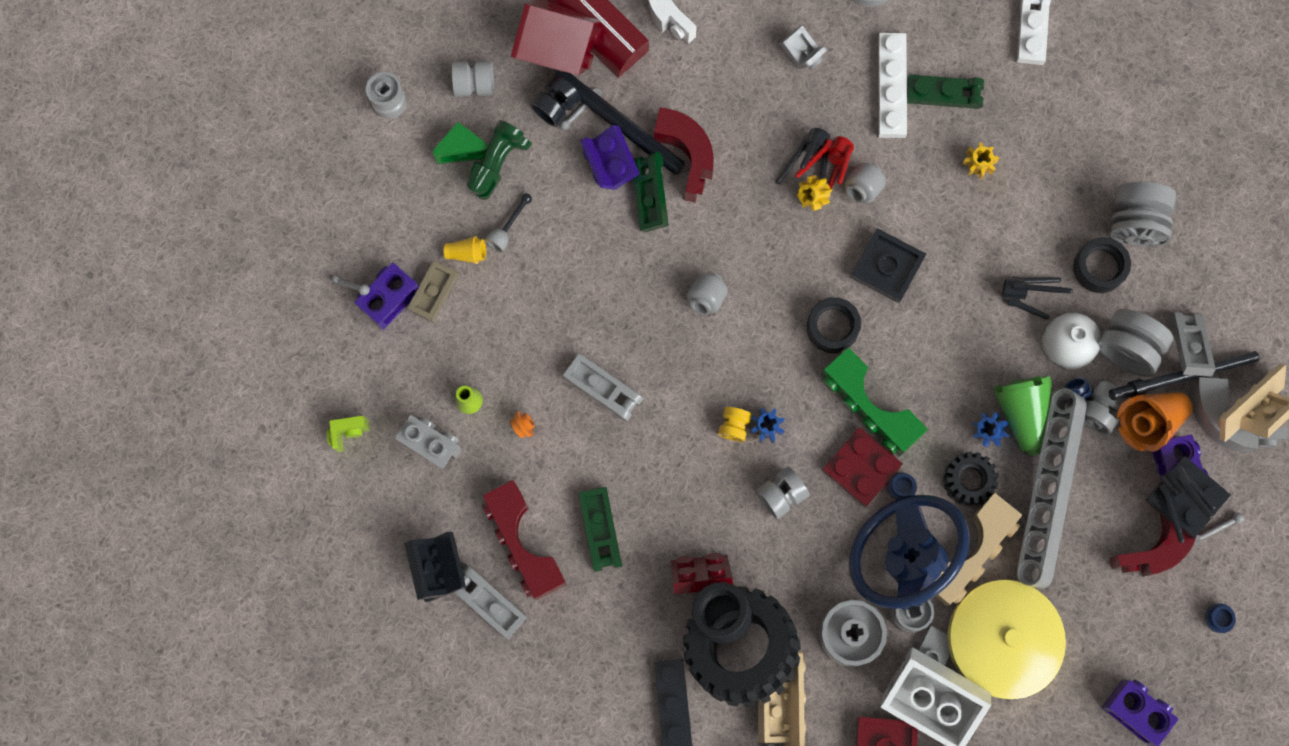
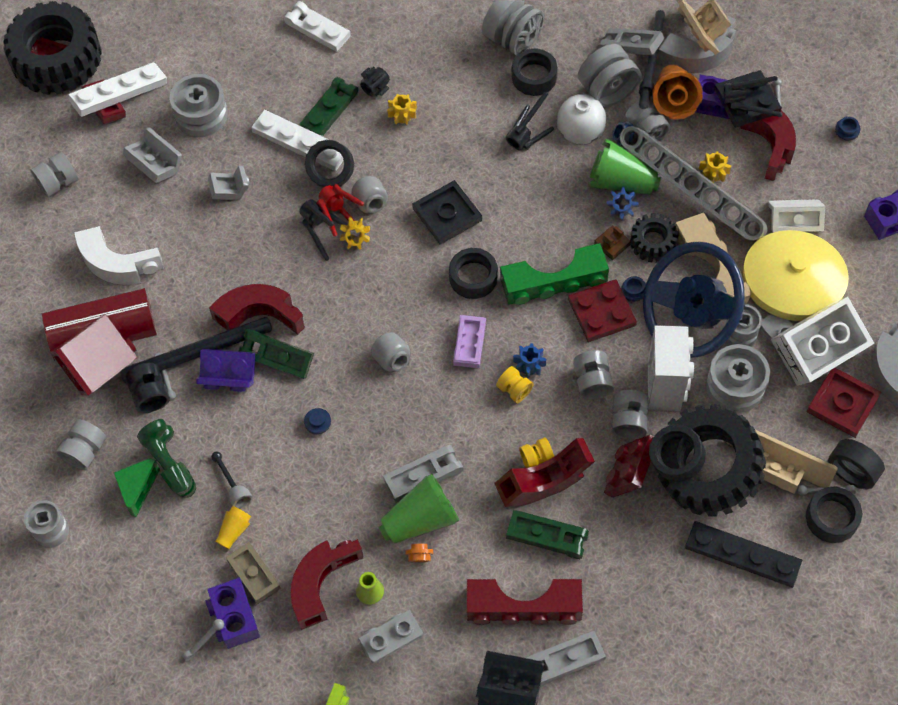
camera: 65 degrees left, 15 degrees down
(451, 341) = (312, 572): none -> dark red arch
(560, 405) = (419, 512): none -> bright green cone
(605, 266) = (317, 421): none -> dark blue plate
(650, 498) = (538, 482): none -> dark red arch
(677, 485) = (536, 453): none -> yellow wheel
(749, 551) = (630, 414): none -> light grey wheel
(759, 359) = (469, 341): none -> lavender plate
(816, 561) = (669, 368): none -> white brick
(861, 113) = (316, 149): none -> black tyre
(944, 440) = (613, 242): none -> reddish brown tile
(997, 117) = (375, 81): none -> black gear
(1080, 610) = (797, 215): none -> white panel
(1088, 493) = (715, 166): none -> yellow gear

